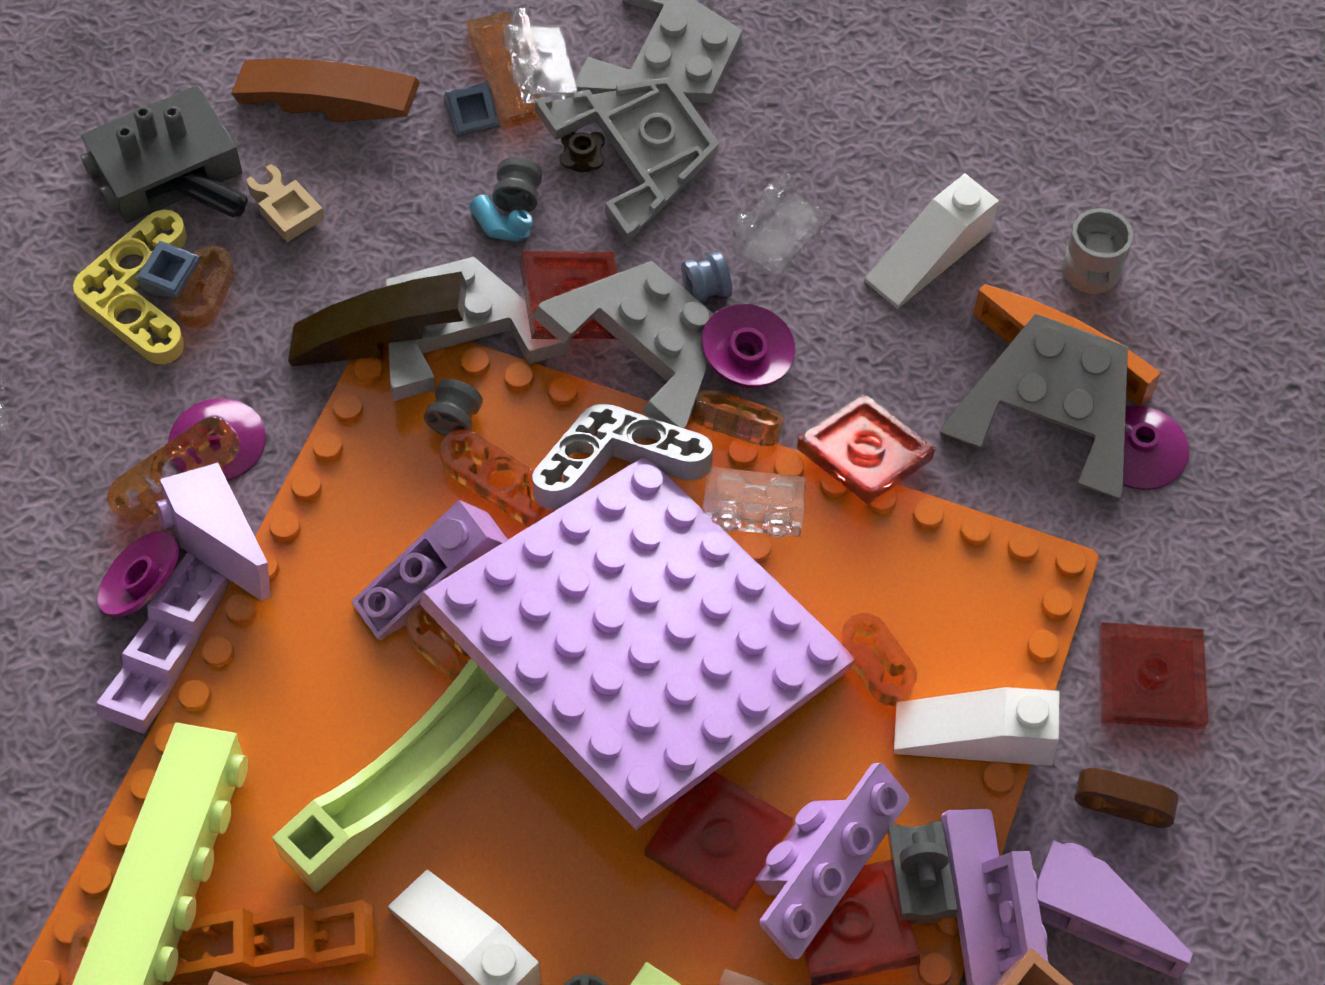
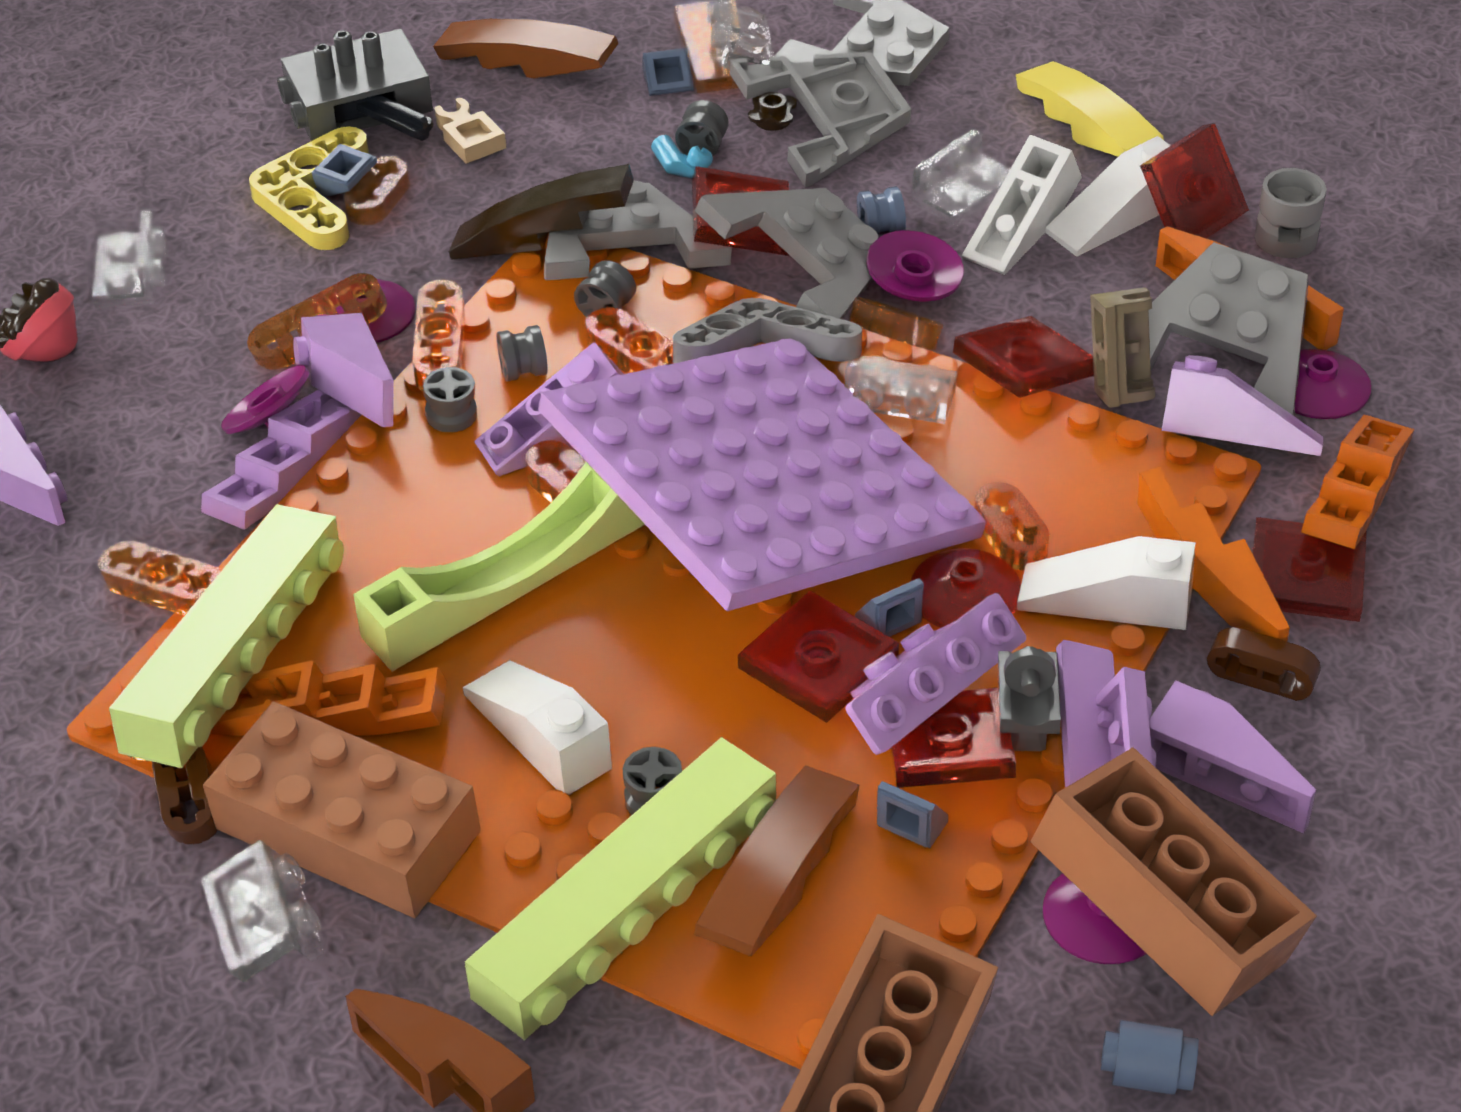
camera: 10 degrees right, 15 degrees down
(64, 790) = (153, 564): none -> clear orange beam
(309, 494) = (430, 322): none -> clear orange beam
(319, 545) = (450, 399): none -> dark grey wheel
(383, 494) = (522, 353): none -> dark grey wheel
(778, 774) = (894, 609): none -> sand blue slope
(839, 756) = (960, 580): none -> clear red dish
(842, 263) = (1024, 205): none -> white slope
(895, 132) = (1093, 110): none -> light yellow slope
(959, 440) = (1122, 346): none -> dark tan hinge
(1005, 229) = (1195, 184): none -> clear red plate
(1061, 500) = (1226, 408): none -> lavender slope
(1083, 708) = (1222, 573): none -> orange slope
(1190, 571) = (1357, 481): none -> orange slope

